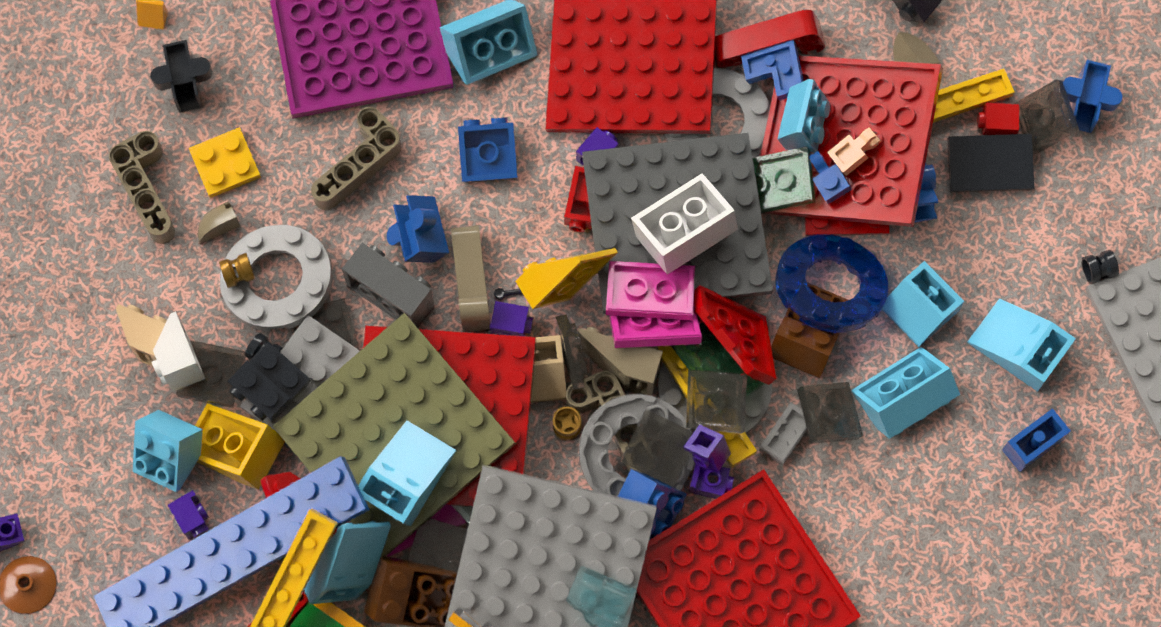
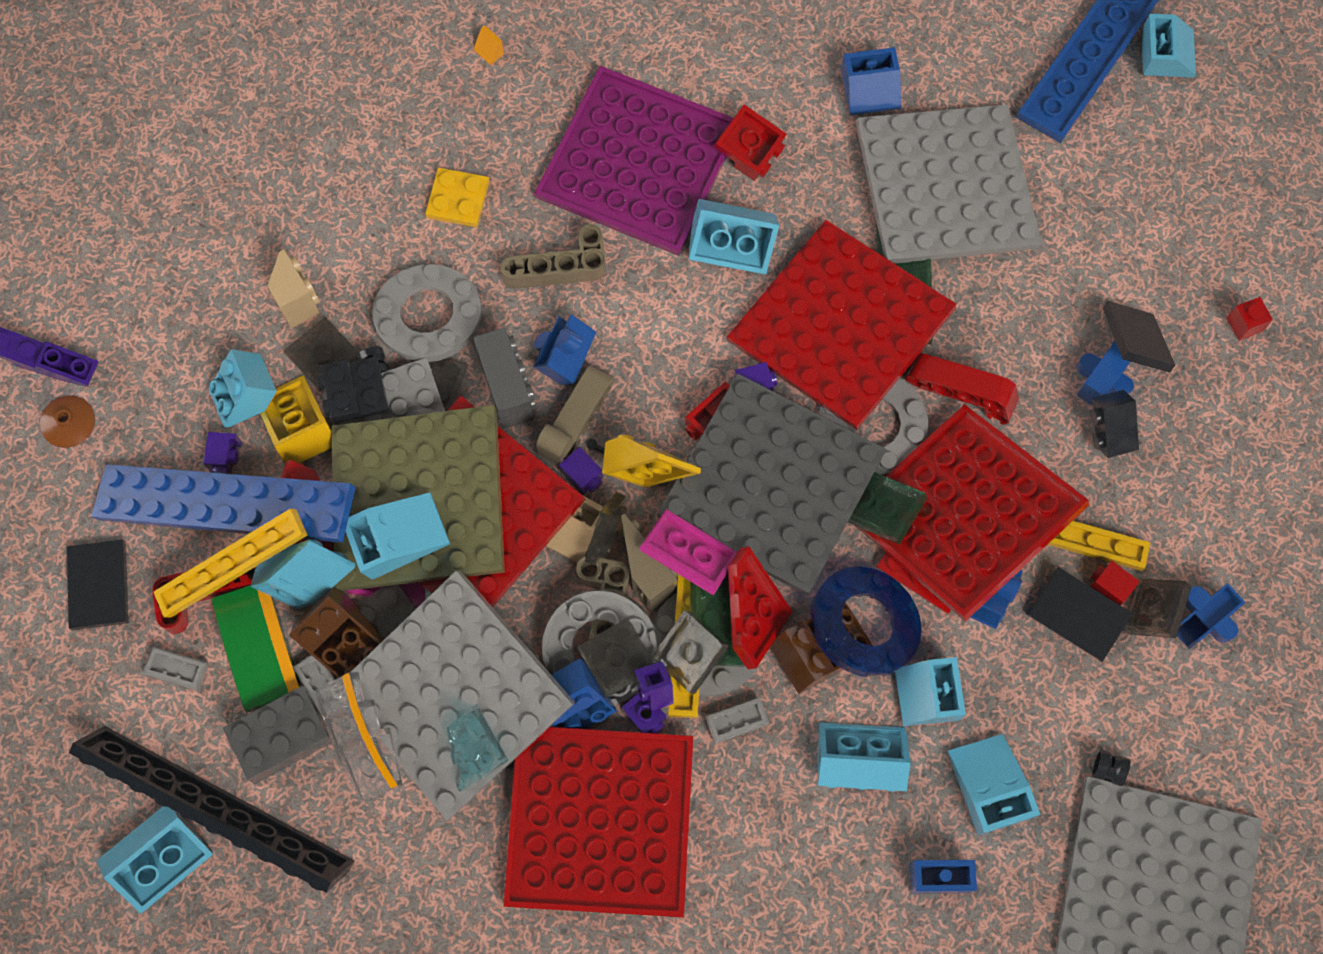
camera: 35 degrees right, 0 degrees up
(144, 191) = (380, 179): dark tan beam -> none
(175, 356) = (299, 318): white slope -> none
(182, 75) = (473, 107): black piece -> none
(217, 222) = (417, 240): dark tan brick -> none
(243, 269) = (398, 285): pearl gold wheel -> none
(487, 150) = (666, 322): blue plate -> none
(563, 420) = (562, 580): pearl gold wheel -> none
(649, 292) = (705, 523): dark pink tile -> none
(684, 223) = (771, 487): white brick -> none
(776, 62) = (956, 413): plate -> none
(804, 117) = (941, 467): medium azure slope -> none
(829, 412) = (784, 728): clear smoke plate -> none
(830, 180) = (924, 535): plate -> none
(850, 152) = (957, 522): light nougat plate -> none
(912, 49) = (1082, 476): dark tan brick -> none

